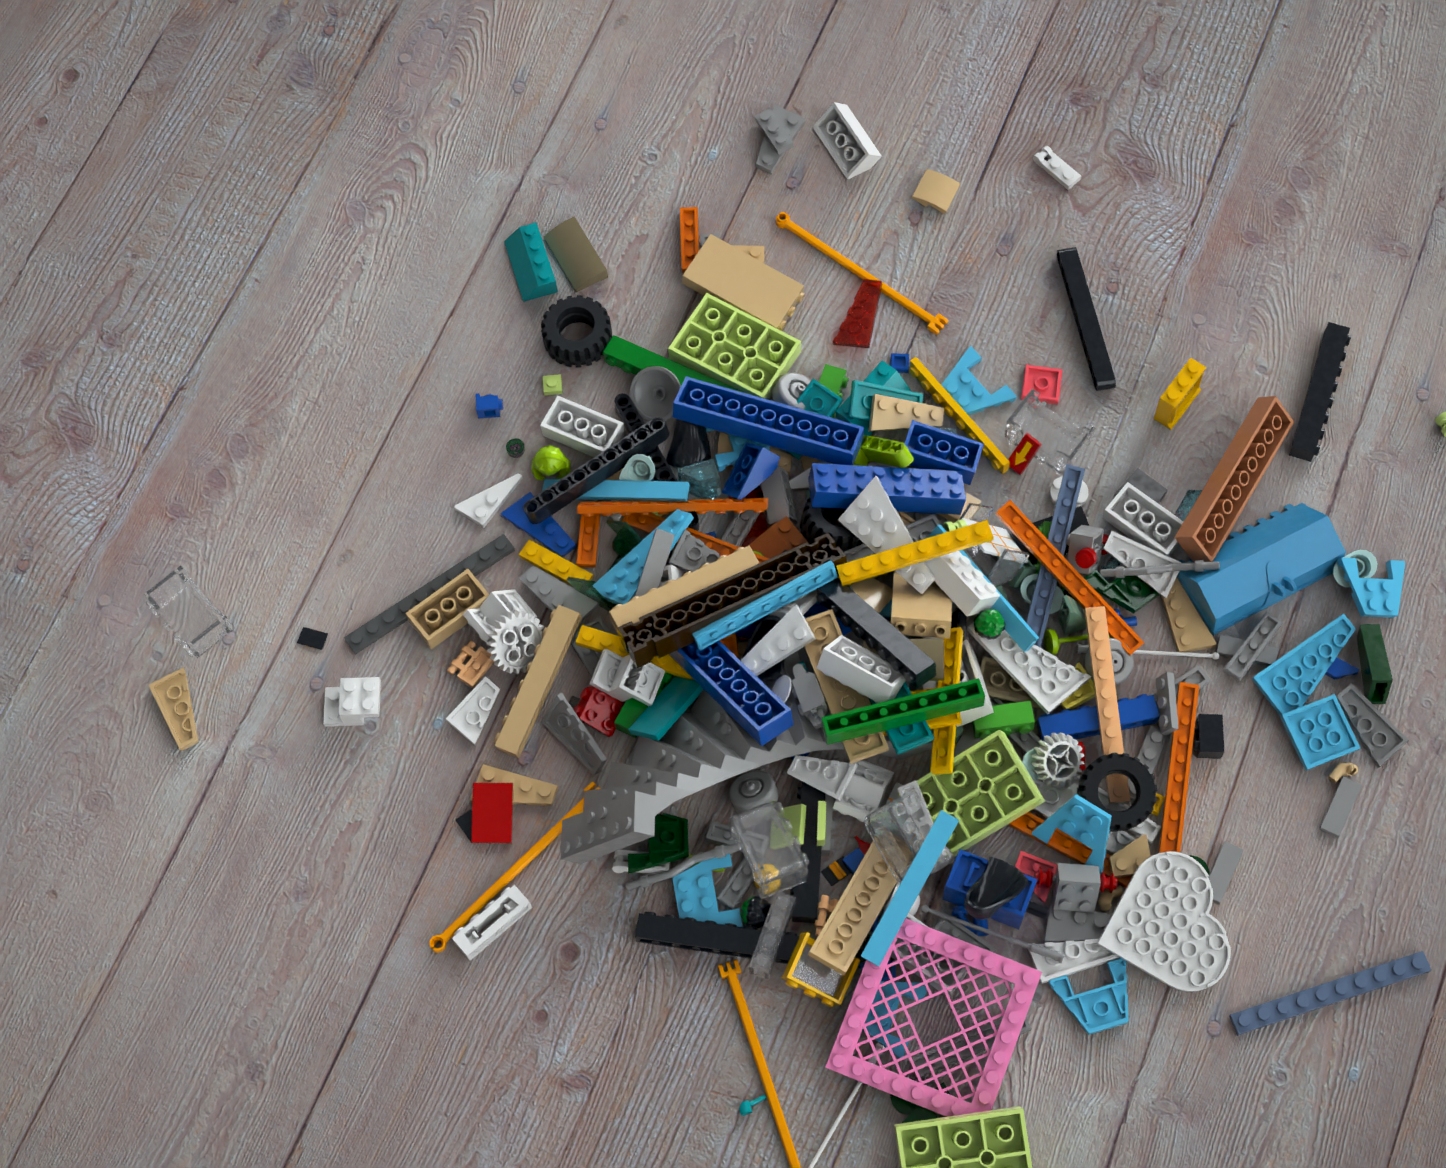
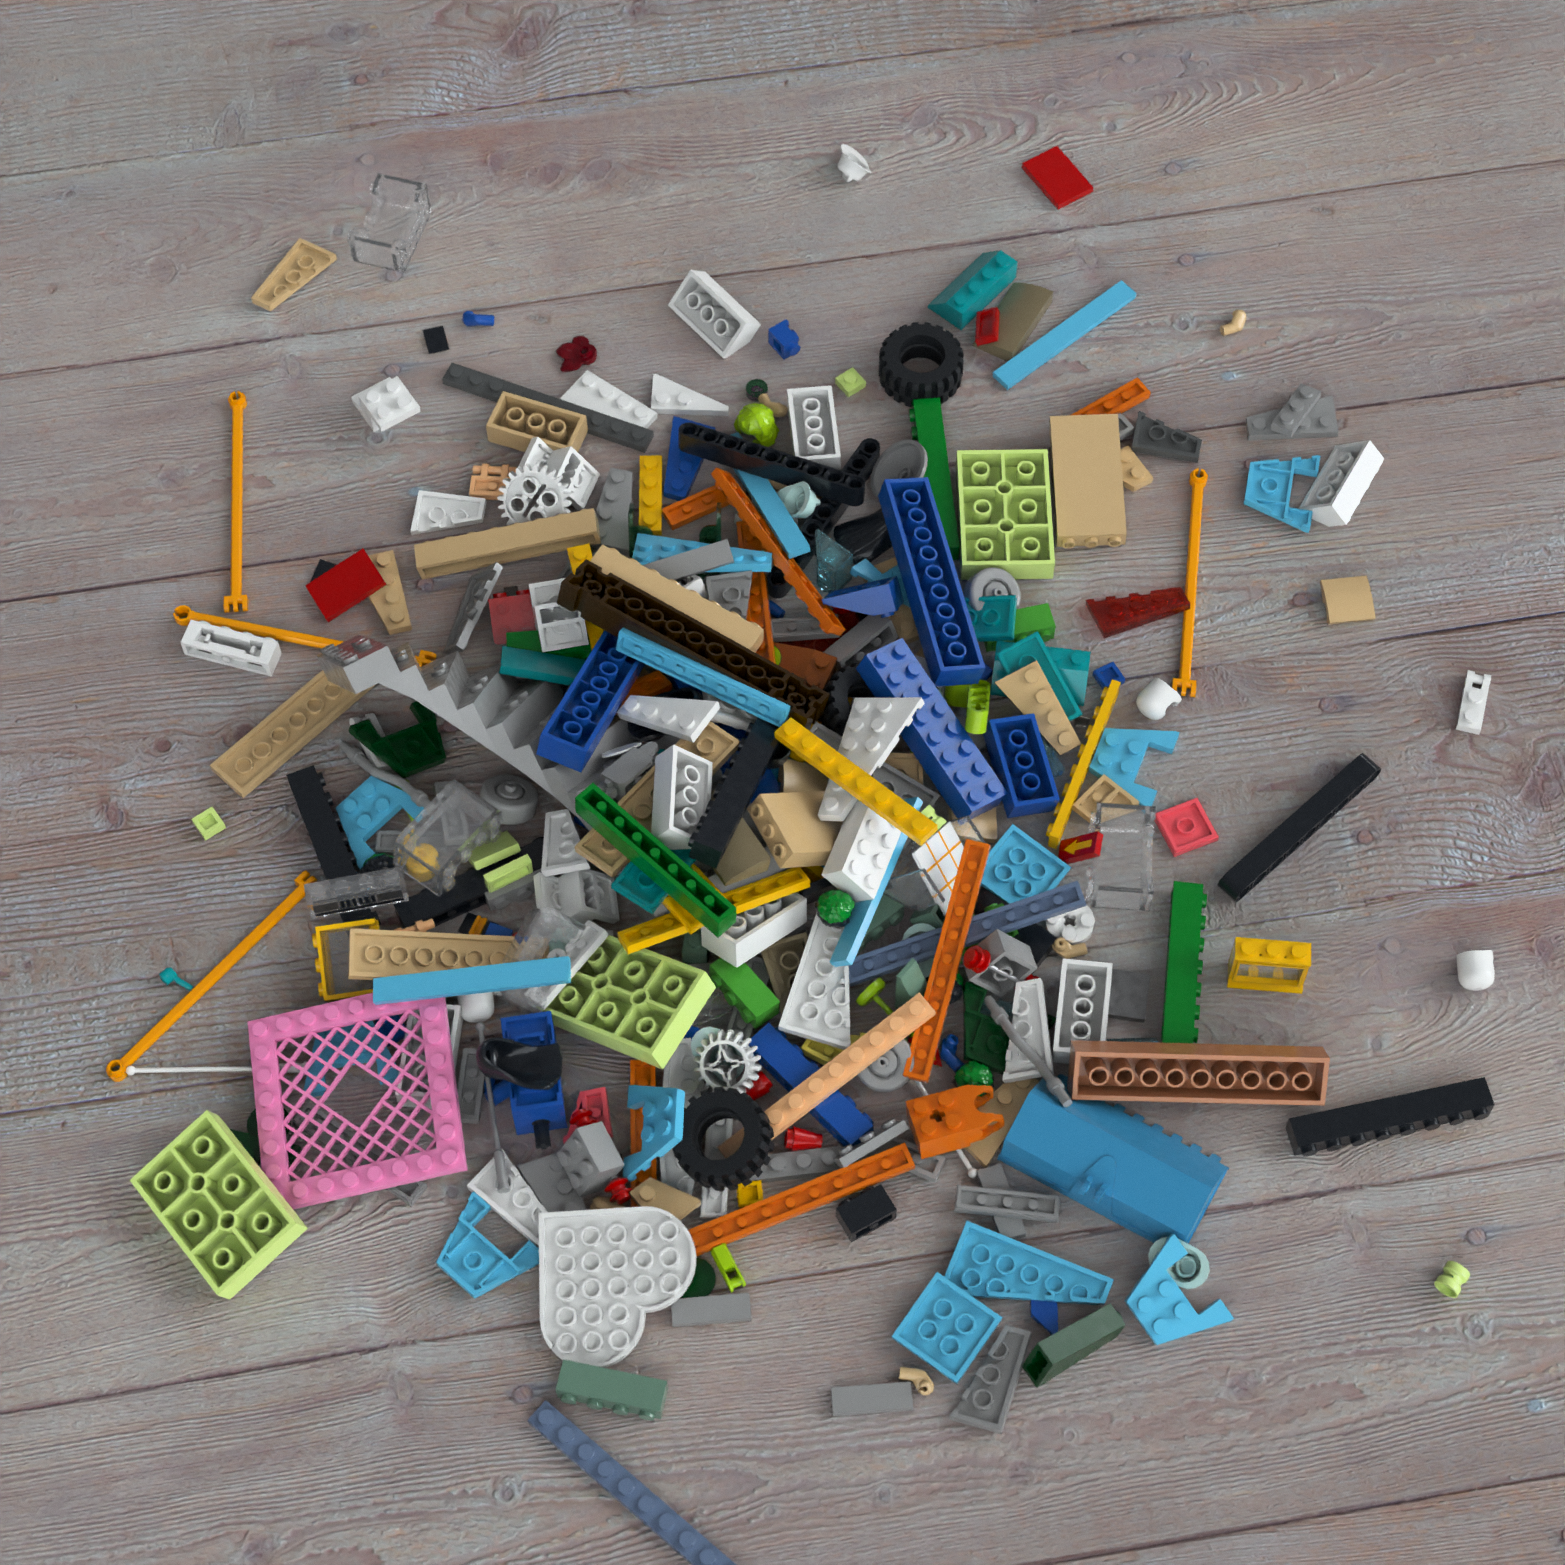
camera: 55 degrees right, 5 degrees down
(313, 604) = (472, 319): none -> blue arm
(369, 278) = (852, 164): none -> white piece
(396, 551) = (576, 354): none -> dark red plate
(431, 439) = (713, 313): none -> white slope
(446, 898) = (236, 505): none -> light orange hinge
(450, 551) = (603, 397): none -> white wing
(475, 159) = (1057, 177): none -> red tile
(534, 448) = (778, 409): none -> tan arm
(571, 273) = (987, 326): none -> red tile
(589, 920) = (283, 733): none -> tan plate
(610, 231) = (1064, 335): none -> medium azure tile
(634, 1014) = (208, 823): none -> yellowish green plate
(674, 121) = (1236, 325): none -> tan arm
(739, 223) = (1159, 440): none -> dark grey wing
(823, 184) = (1270, 489): none -> medium azure wing
(940, 343) = (1156, 698): none -> white helmet
(993, 419) = (1102, 791): none -> tan wing
(1023, 491) = (1021, 867): none -> medium azure plate
(1090, 506) = (1067, 950): none -> tan arm
(1133, 744) = (801, 1139): none -> red cone
(1146, 446) = (1183, 963): none -> green brick
(1154, 616) = (973, 1074): none -> green piece
(1180, 639) = (951, 1119): none -> orange brick
(1195, 845) = (727, 1265): none -> lime bar
(1247, 967) = (612, 1390): none -> sand green brick
(1249, 281) = (1475, 969): none -> white helmet

